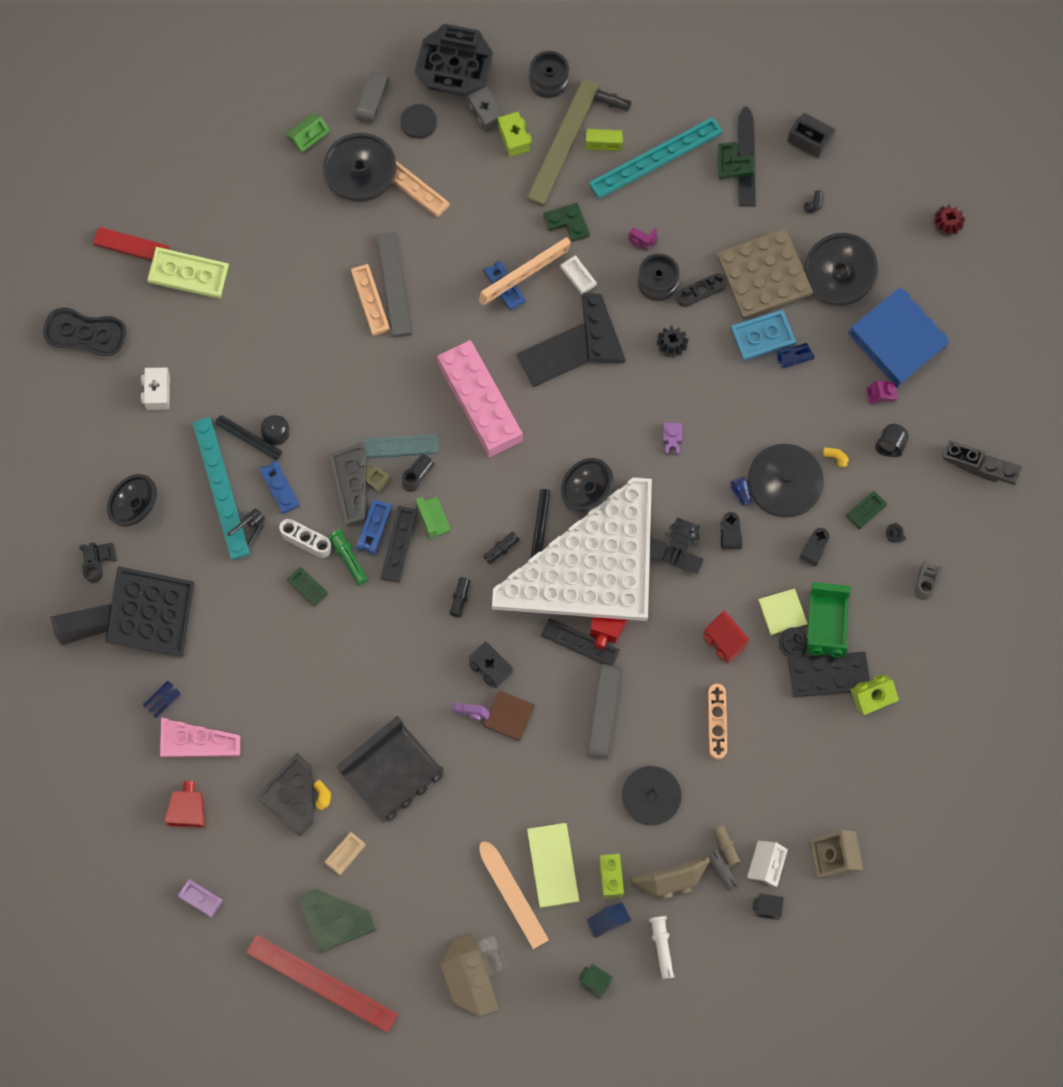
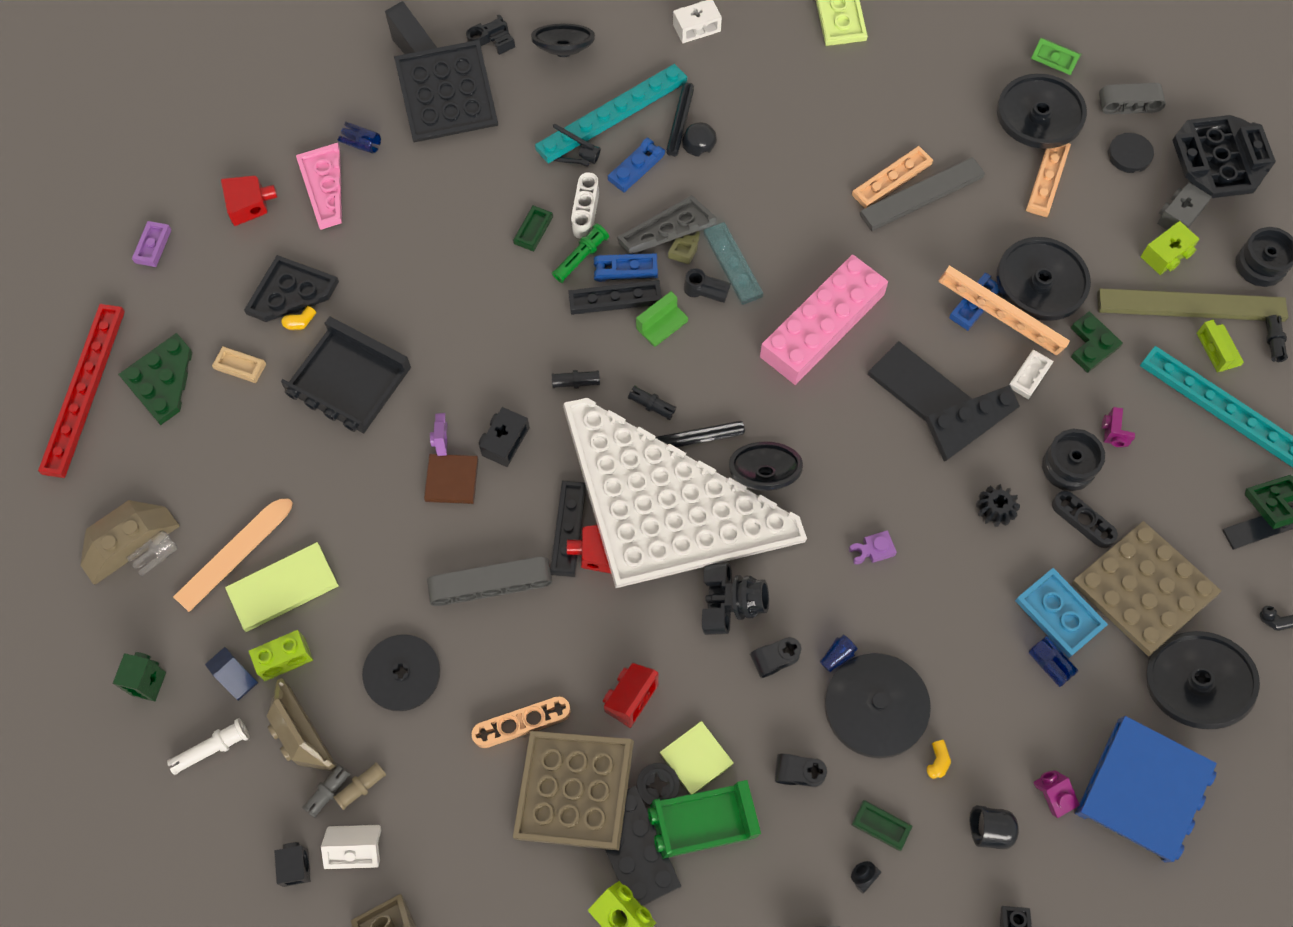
camera: 75 degrees right, 5 degrees down
(507, 232) = (1043, 278): none -> black dish
(780, 698) = (574, 790): none -> dark tan plate

